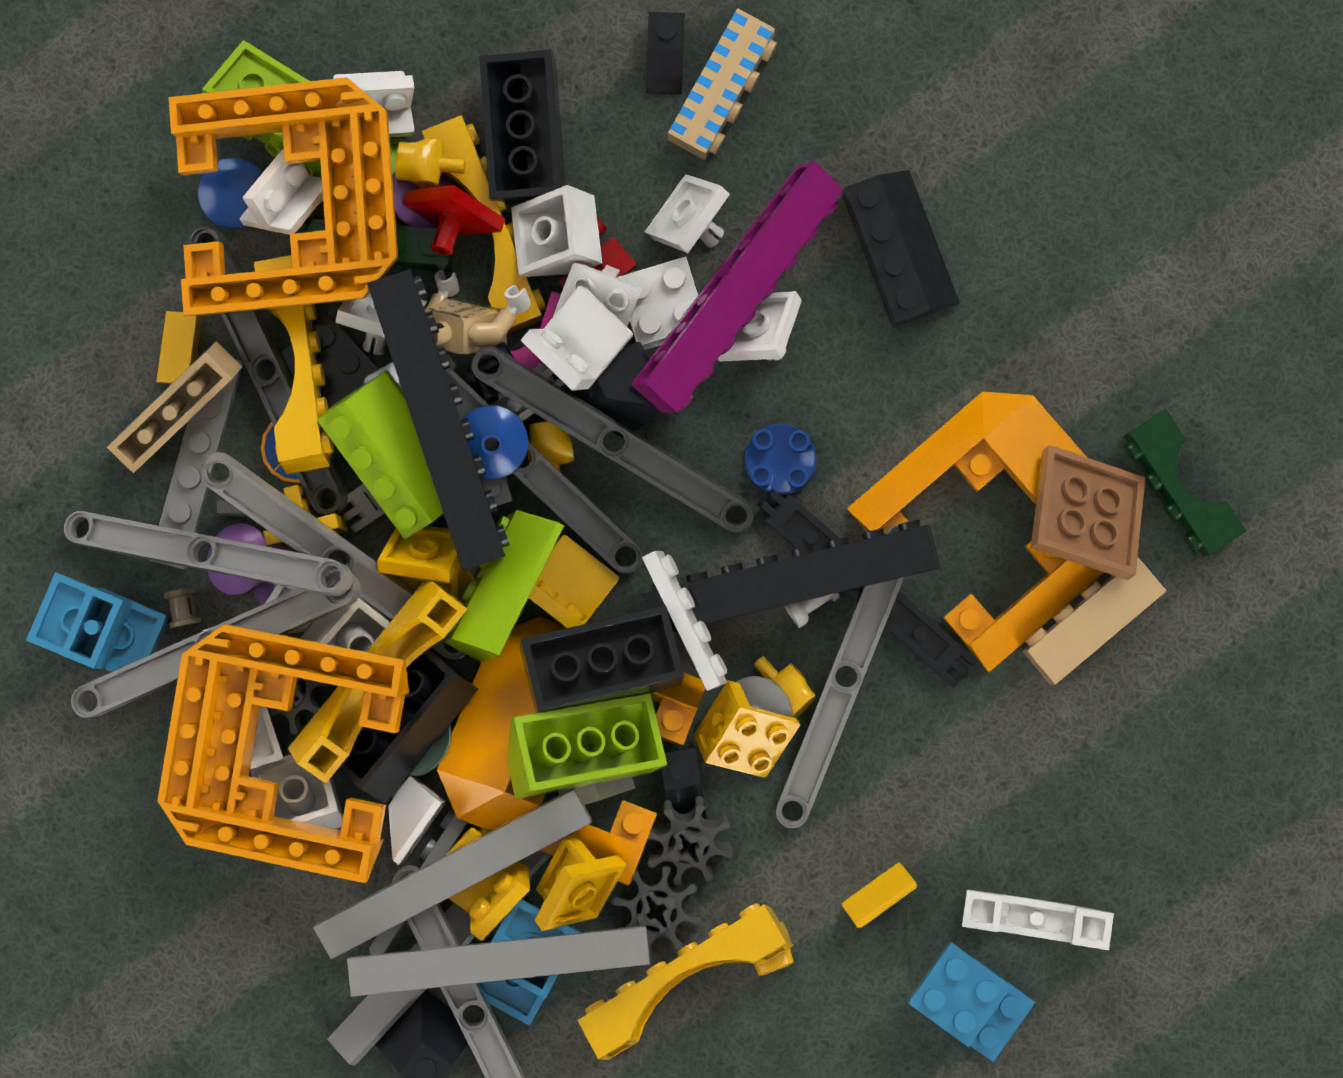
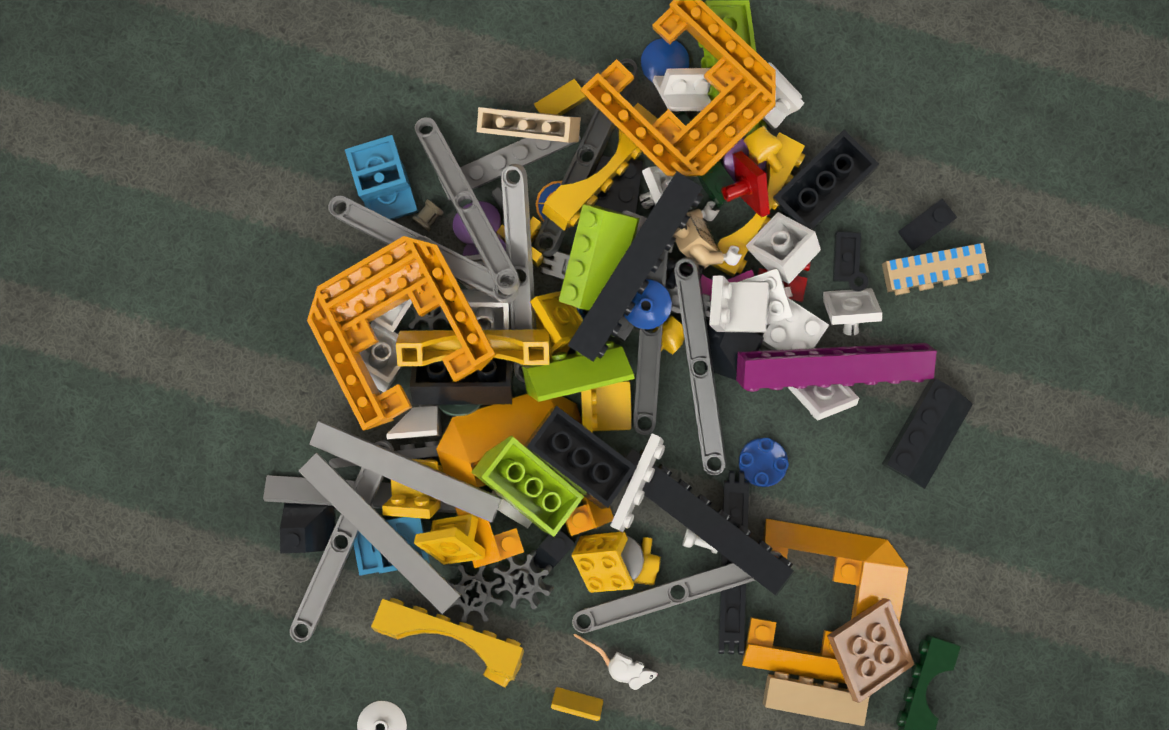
camera: 55 degrees right, 0 degrees up
(631, 174) = (848, 260): none -> black hinge
(881, 809) = (624, 669): none -> white animal

